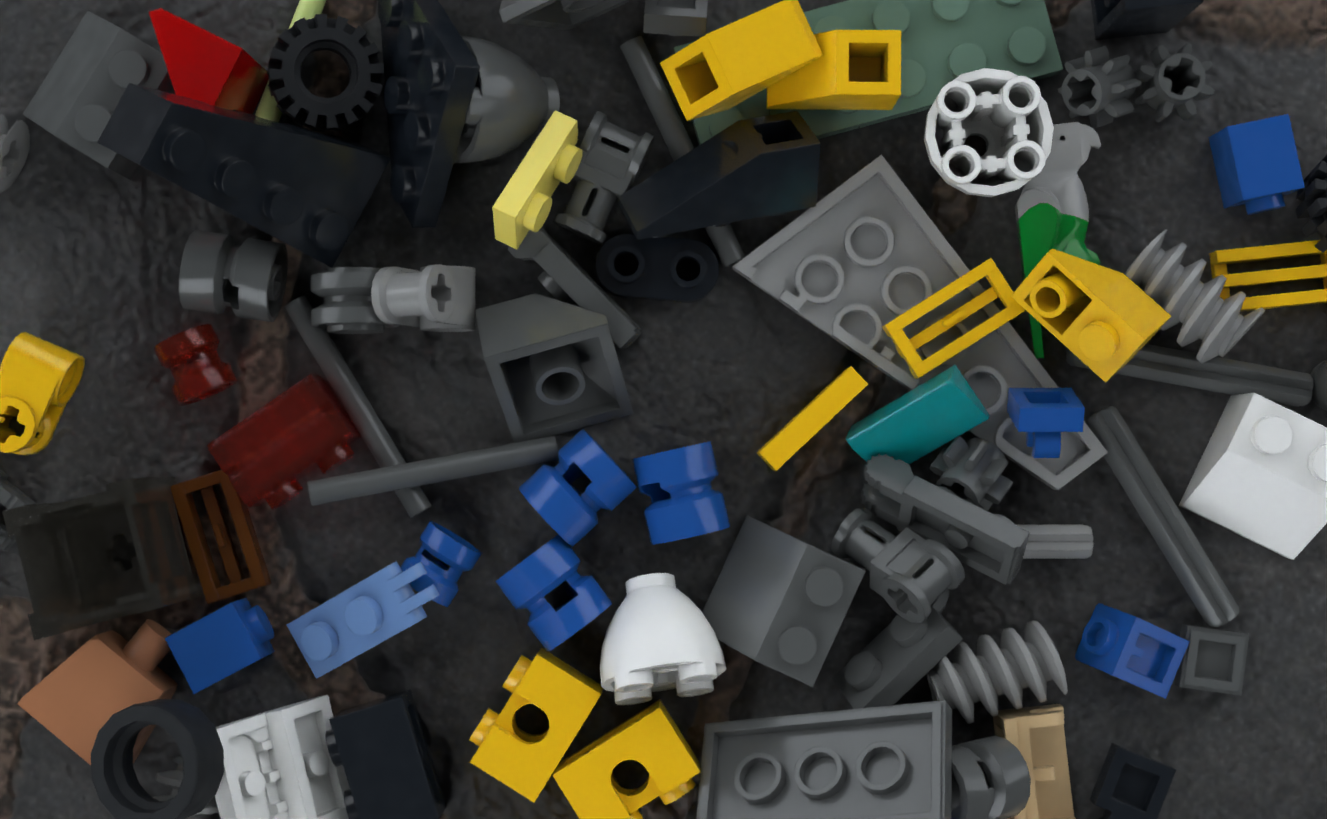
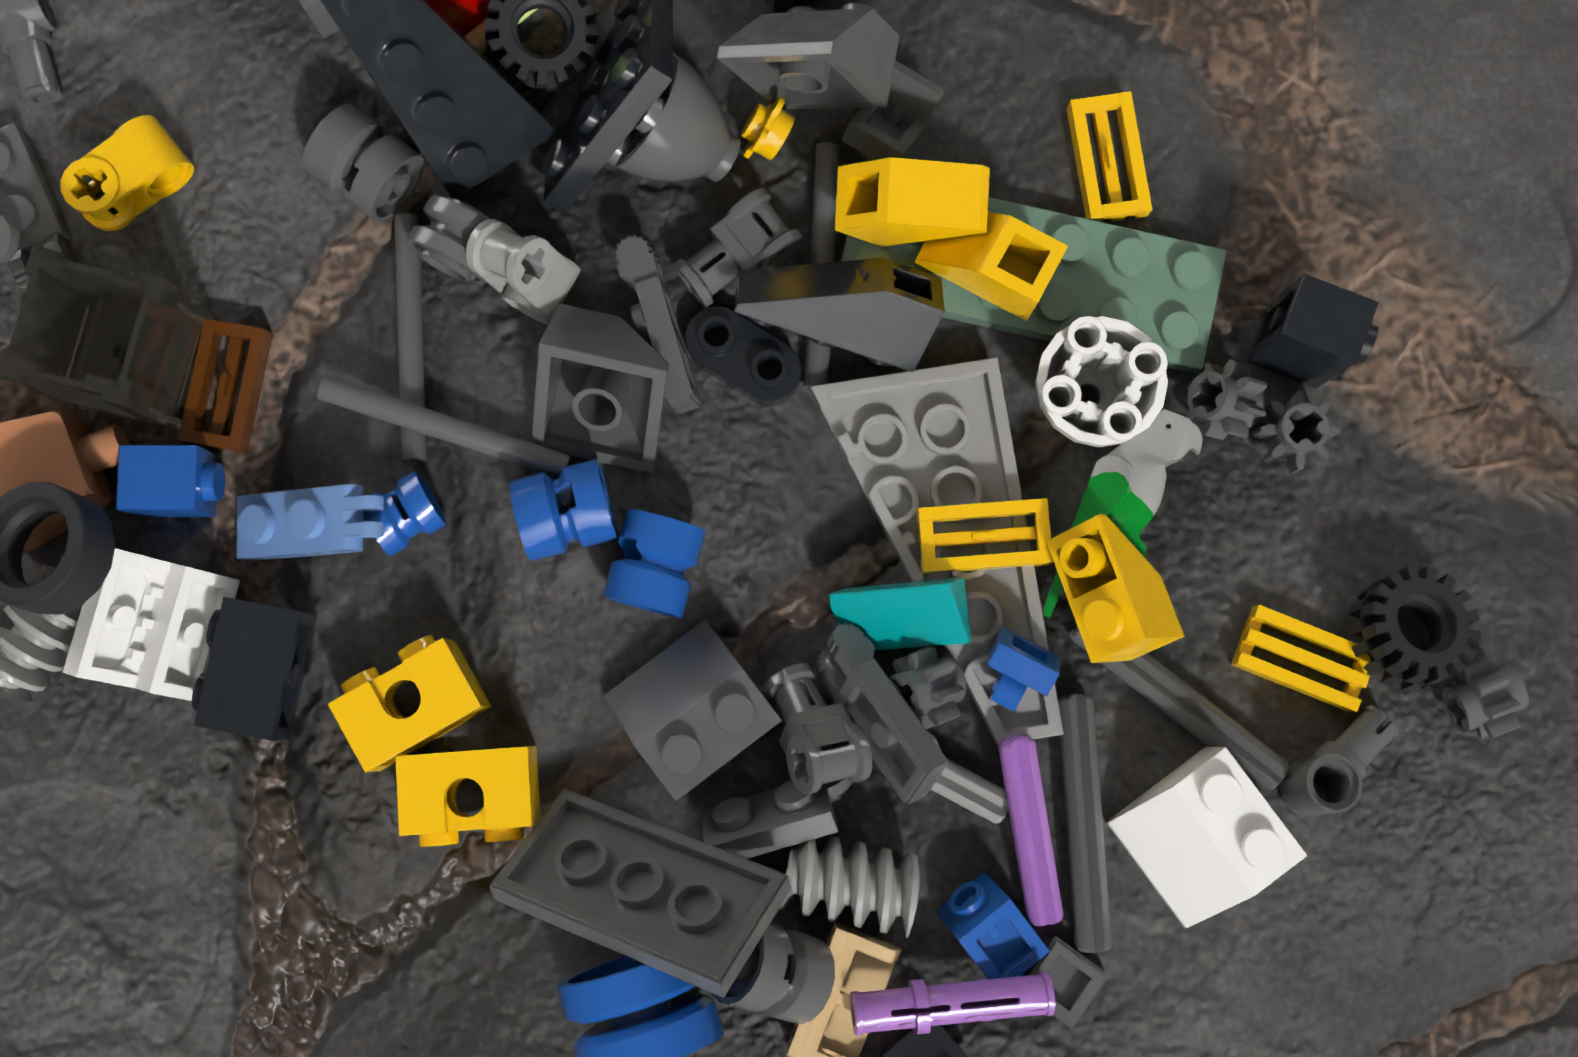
camera: 20 degrees right, 5 degrees down
(195, 364) = (286, 223): clear red wheel -> none
(286, 442) = (326, 333): clear red brick -> none
(528, 193) = (673, 213): light yellow hinge -> none
(540, 574) = (487, 570): blue wheel -> none
(571, 56) = (767, 129): none -> yellow plate
(658, 644) = (558, 691): white piece -> none
(812, 418) = (809, 560): yellow tile -> none
(1113, 743) = (951, 1003): none -> medium lavender pin
(1121, 547) = (1030, 829): none -> medium lavender axle
(1190, 301) = (1210, 636): light grey piece -> none
(1256, 164) = (1336, 544): blue brick -> none

